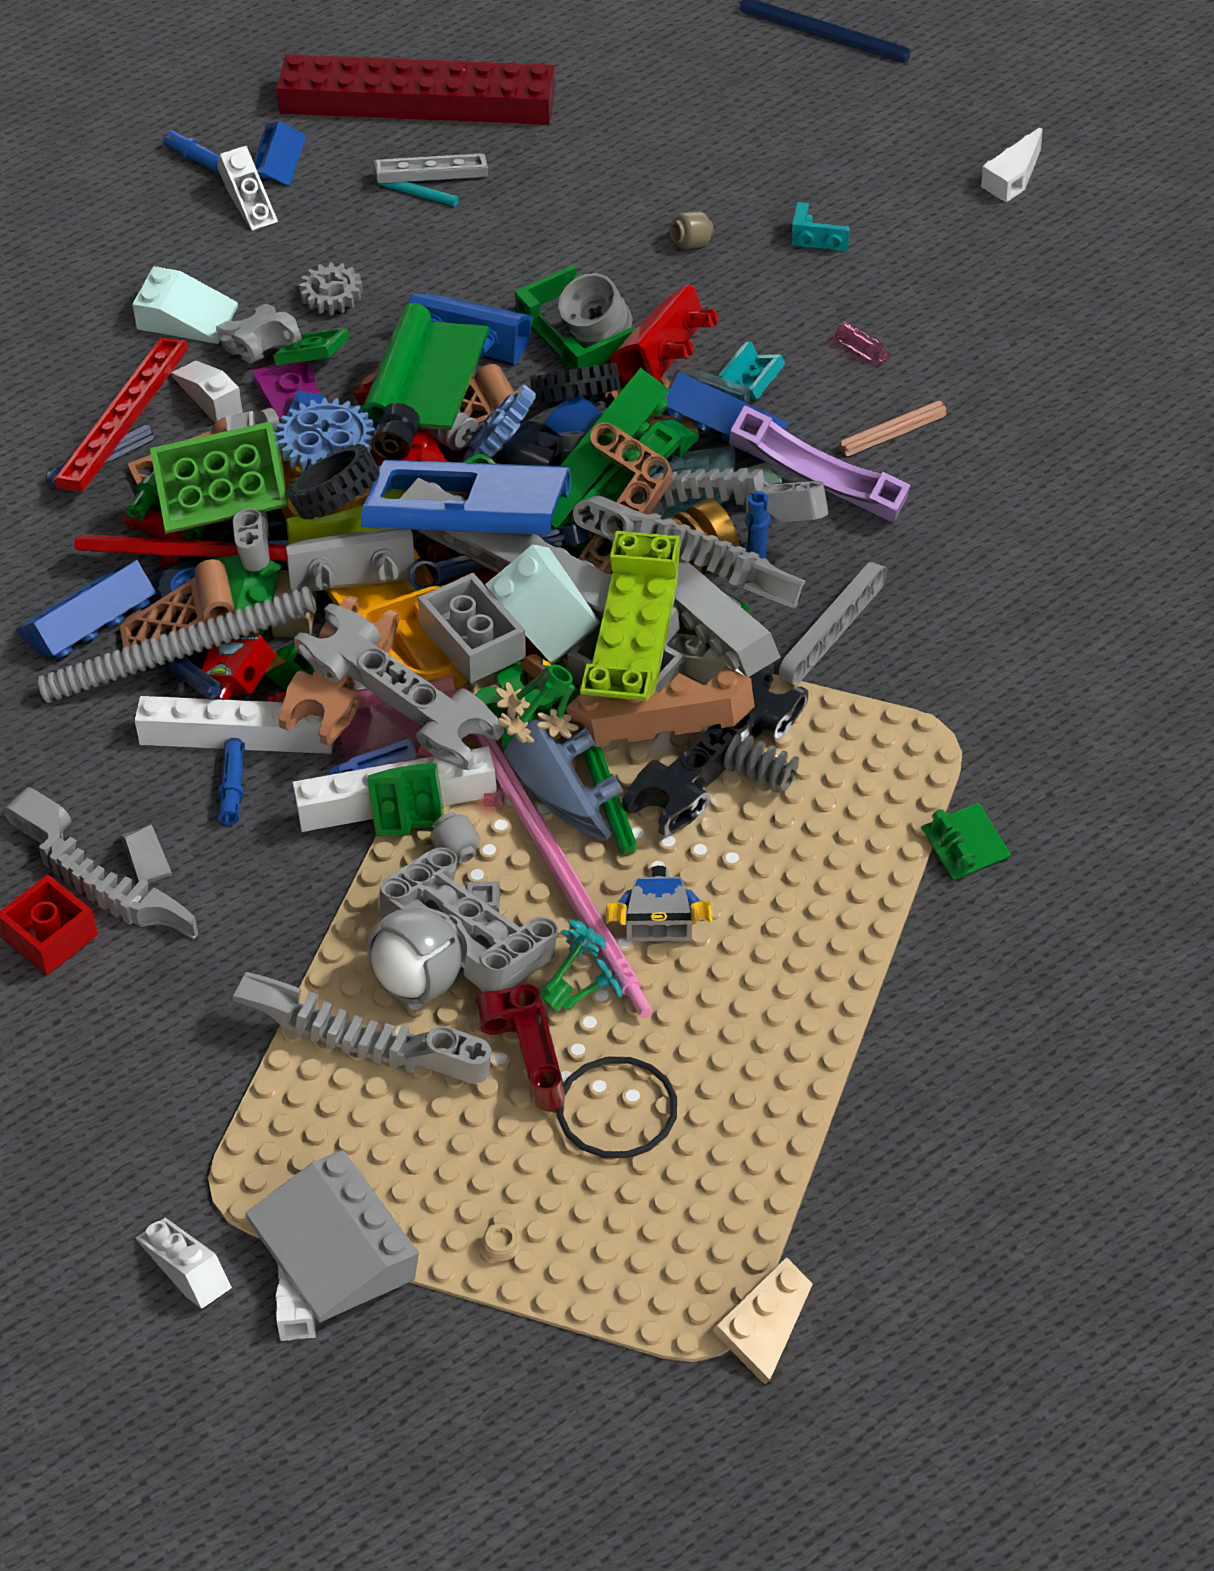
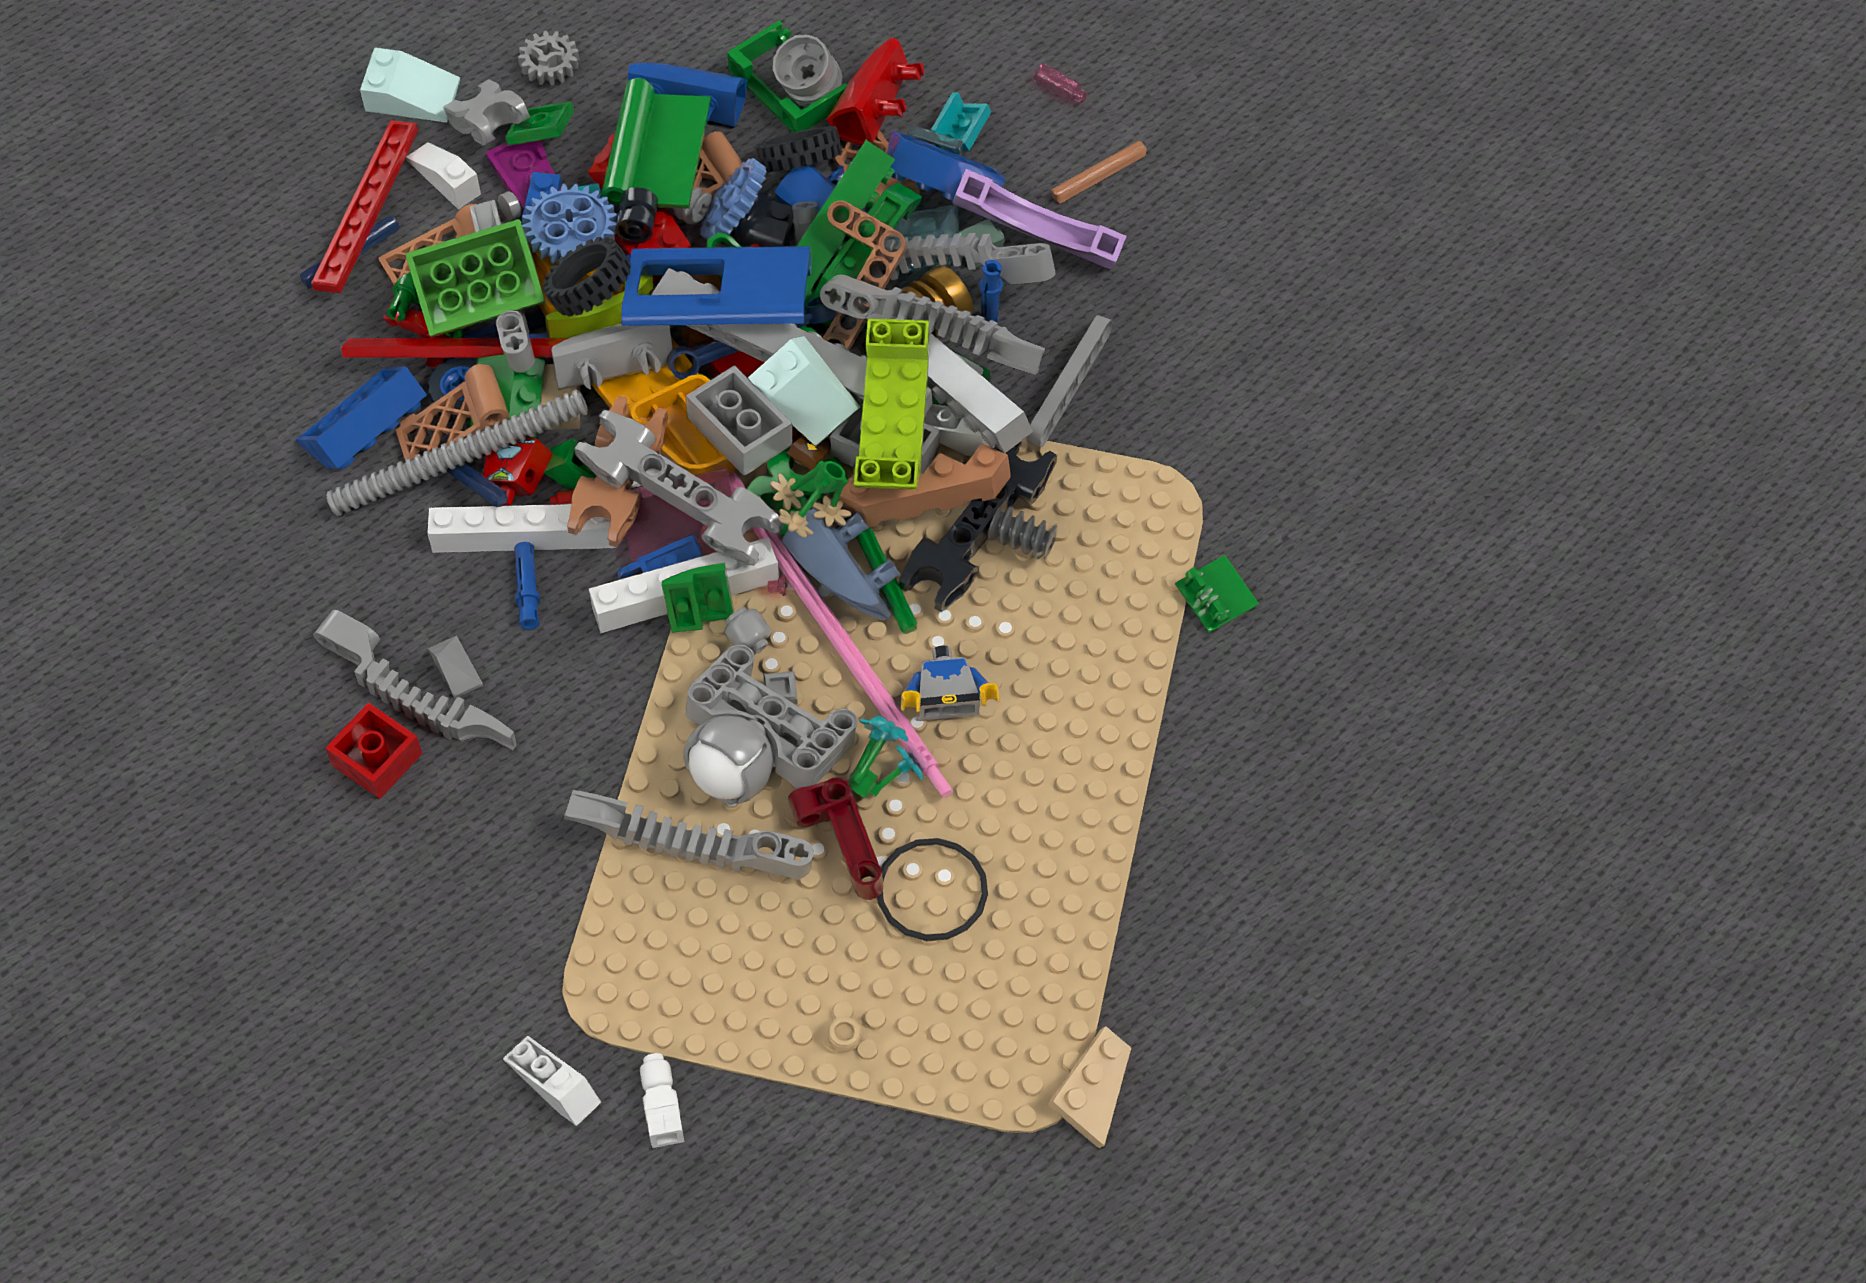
camera: 10 degrees left, 10 degrees up
(334, 1237) = (690, 1047): light grey slope -> none

